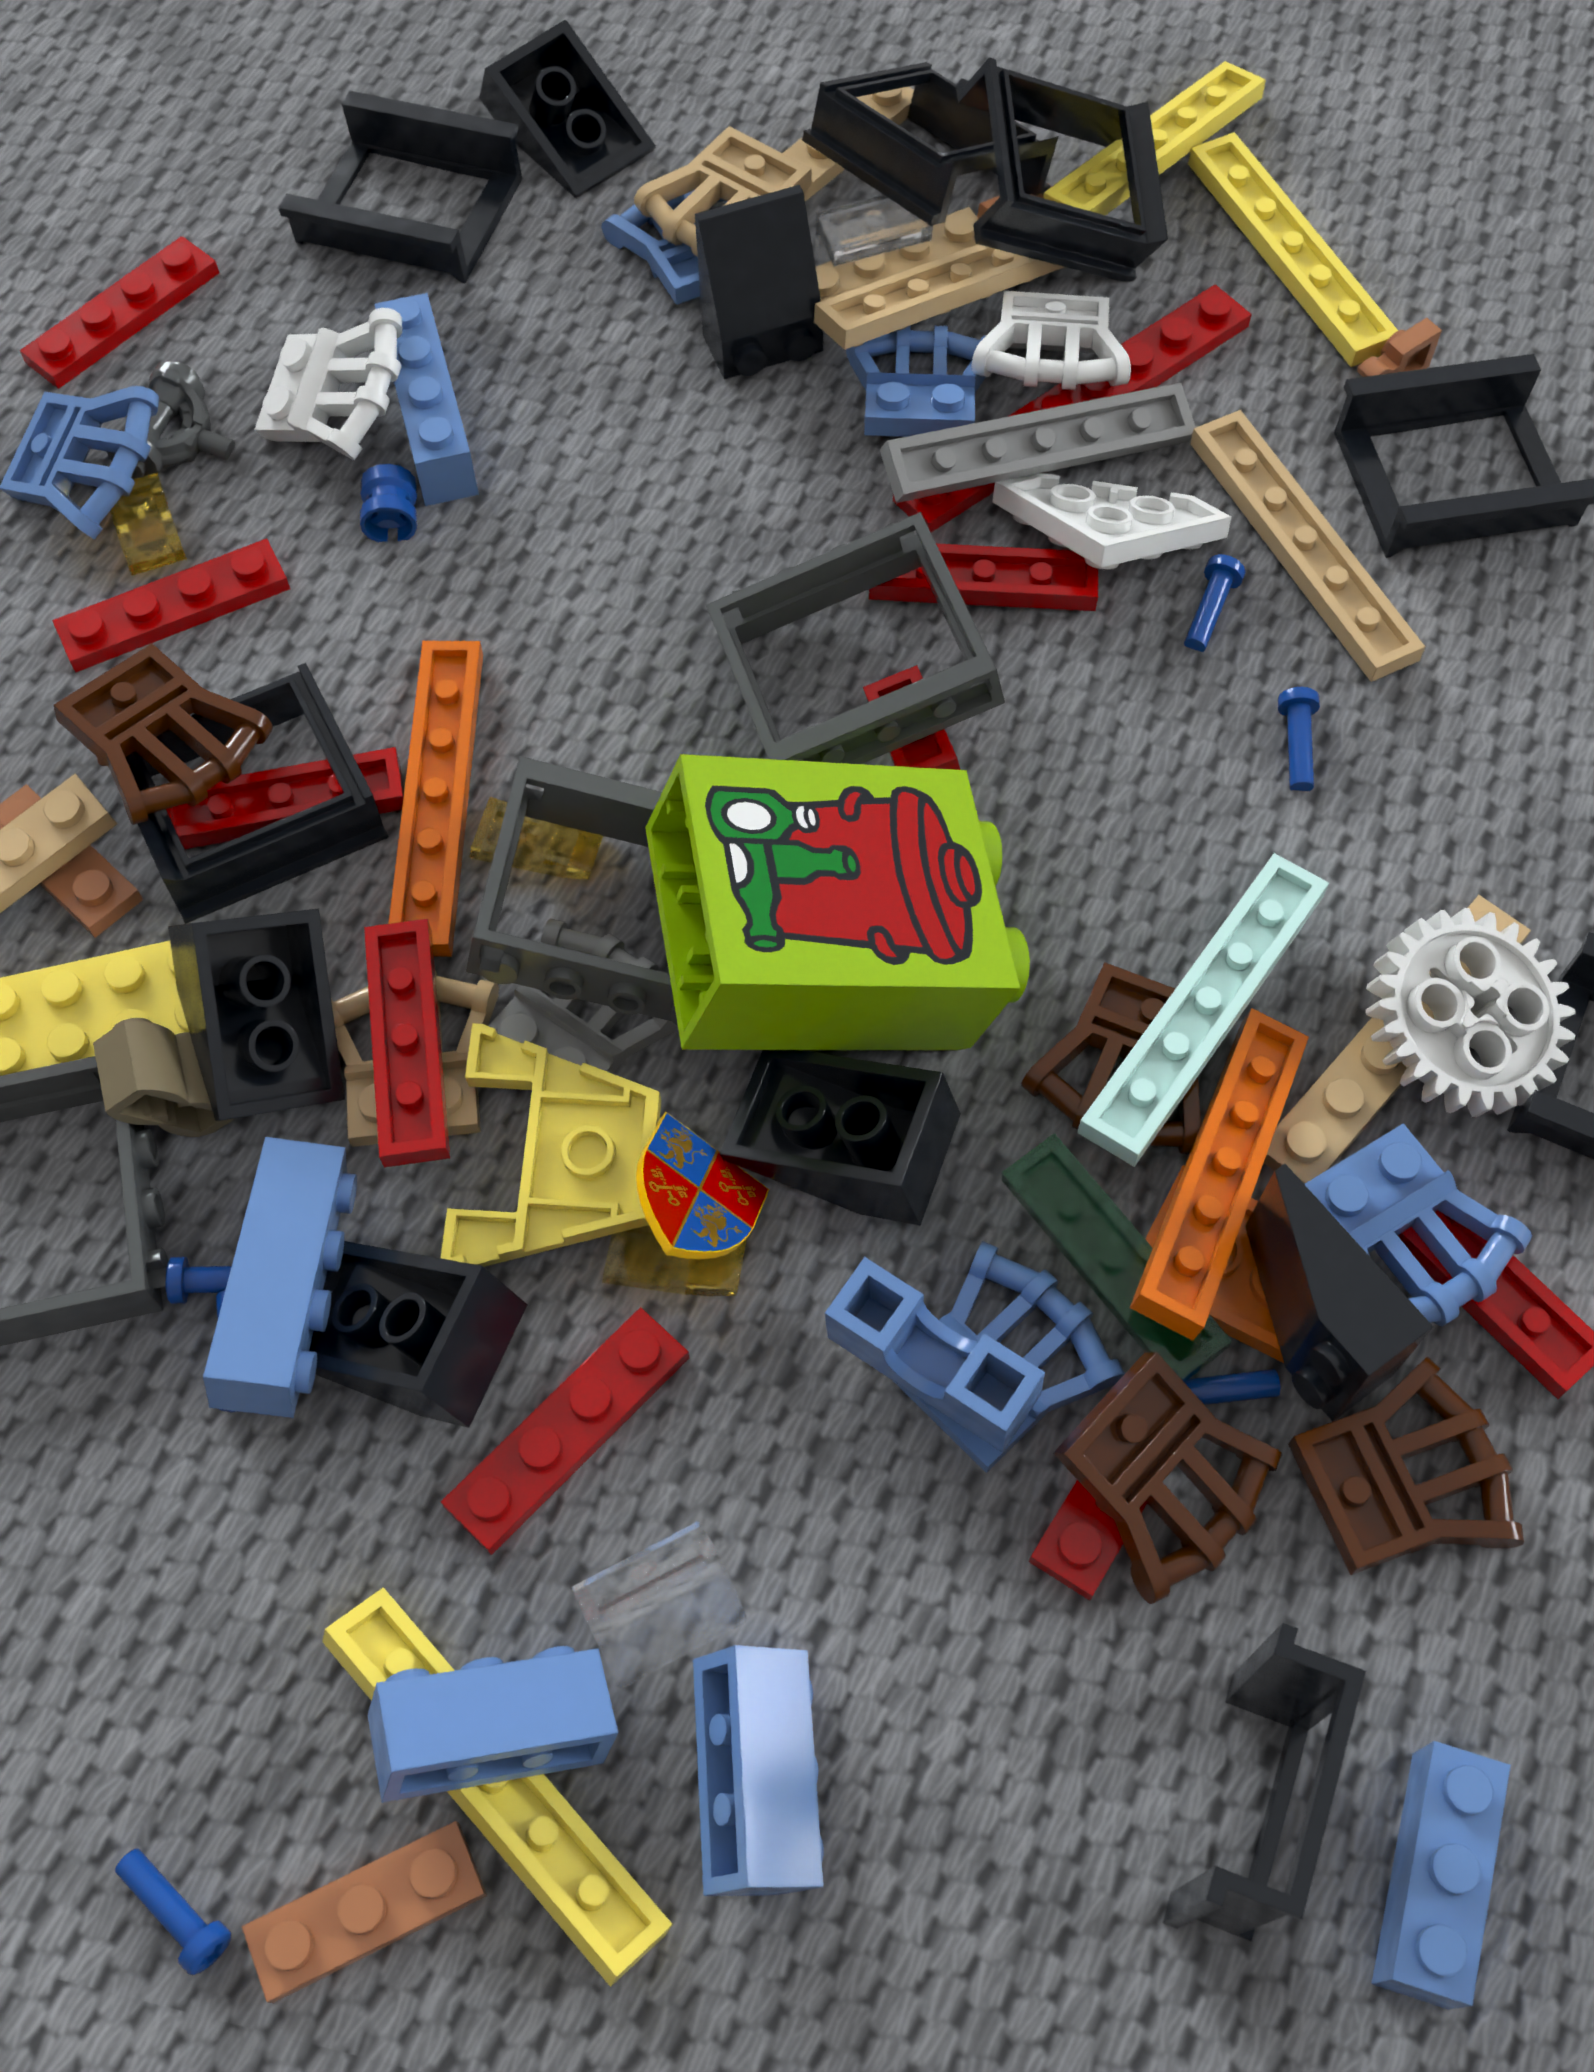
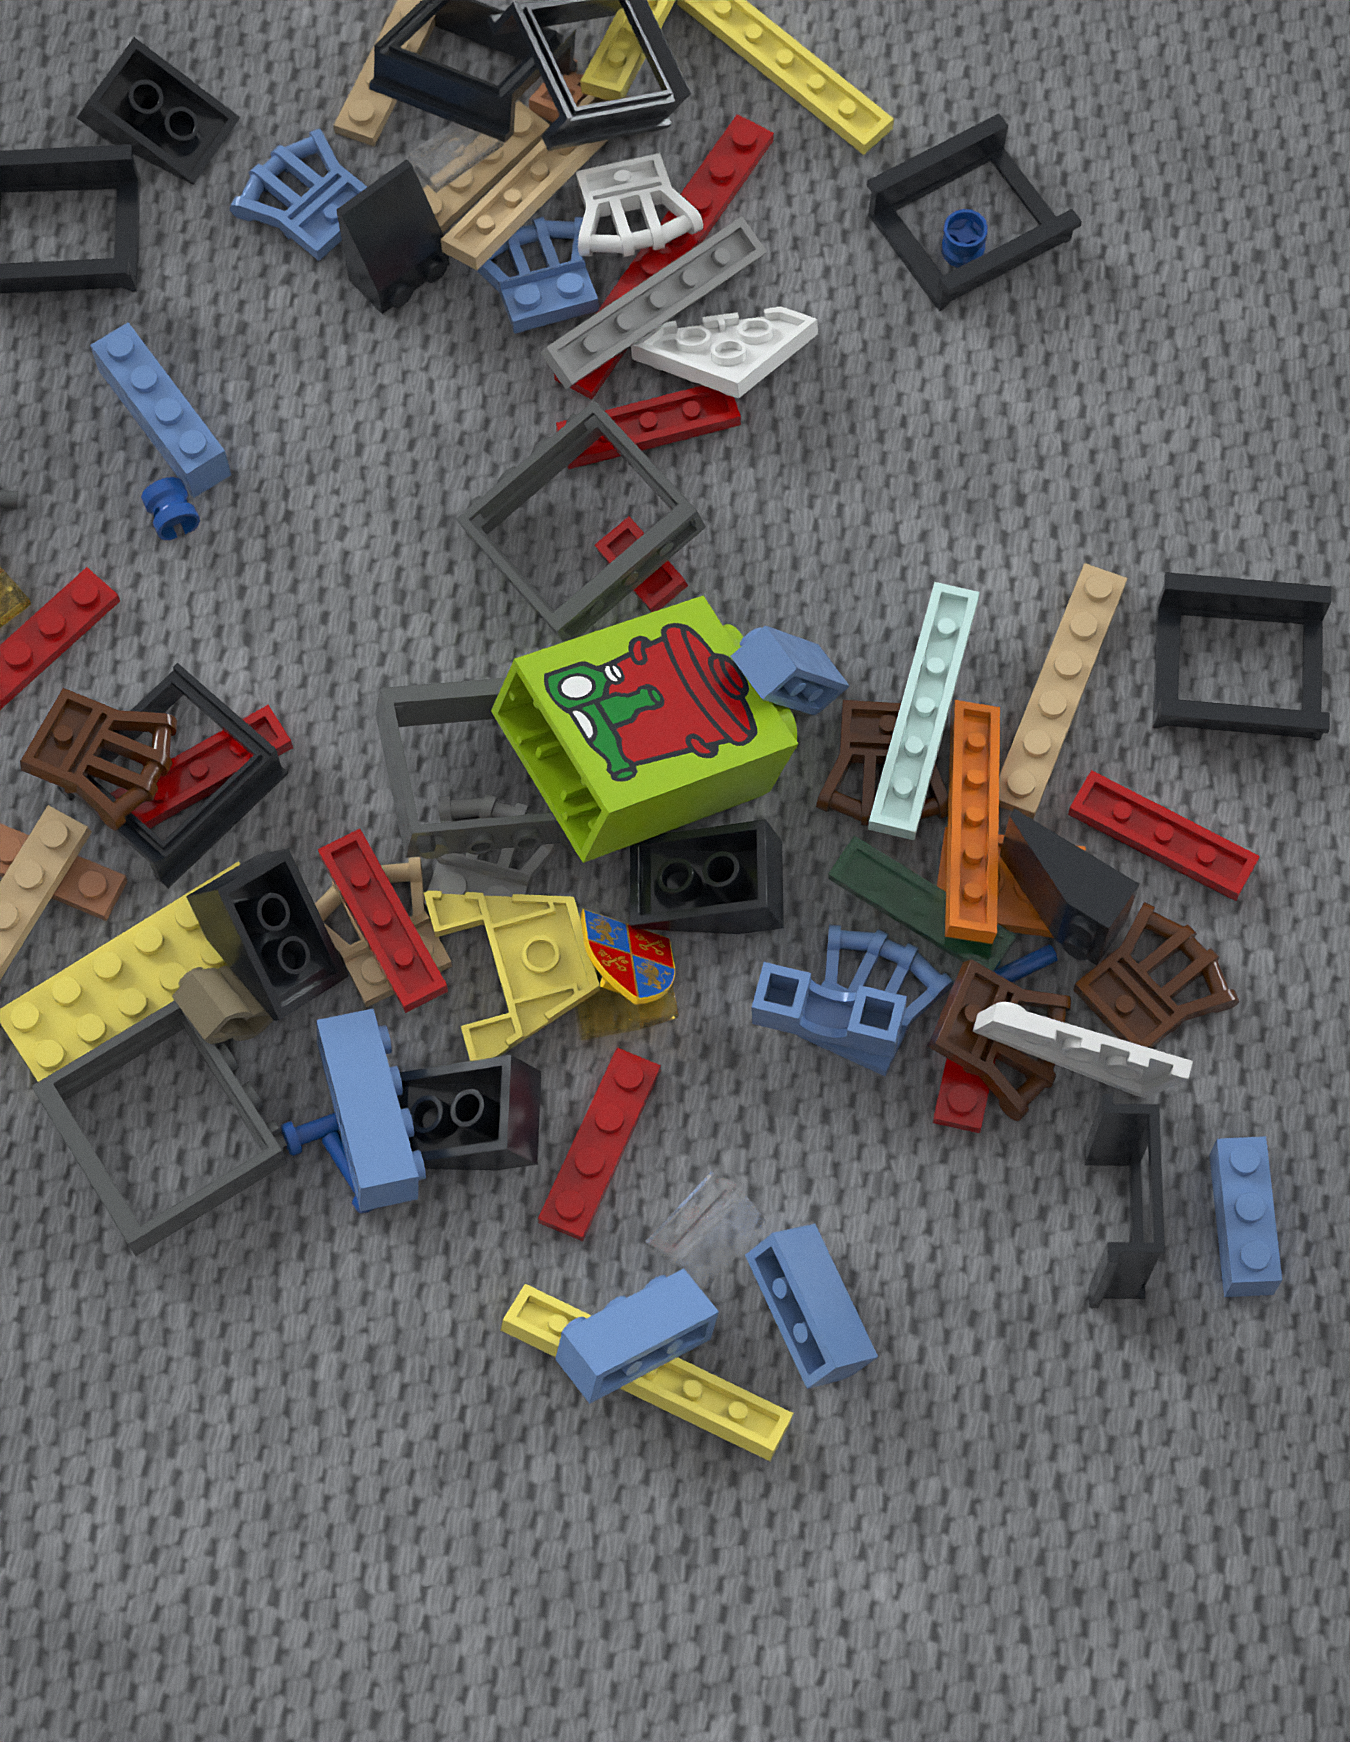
camera: 20 degrees left, 5 degrees up
(200, 1942) = (504, 1530): blue piece -> none
(309, 380) = (61, 424): white plate -> none
(363, 1912) = (598, 1477): nougat plate -> none
(437, 789) = (310, 723): orange plate -> none
(541, 846) = (419, 743): clear yellow slope -> none
(728, 169) = (328, 133): tan plate -> none
(1042, 896) = (789, 670): none -> medium blue brick
(1223, 573) = (825, 365): blue piece -> none
(1282, 1544) = (1089, 1053): none -> white wing
(1299, 705) = (915, 456): blue piece -> none
(1307, 546) = (877, 321): tan plate -> none
(1401, 1187) = (1093, 793): medium blue plate -> none
(1404, 351) = (901, 137): nougat plate -> none
(1445, 474) = (964, 237): none -> blue wheel
(1470, 1012) = (1116, 621): white gear -> none

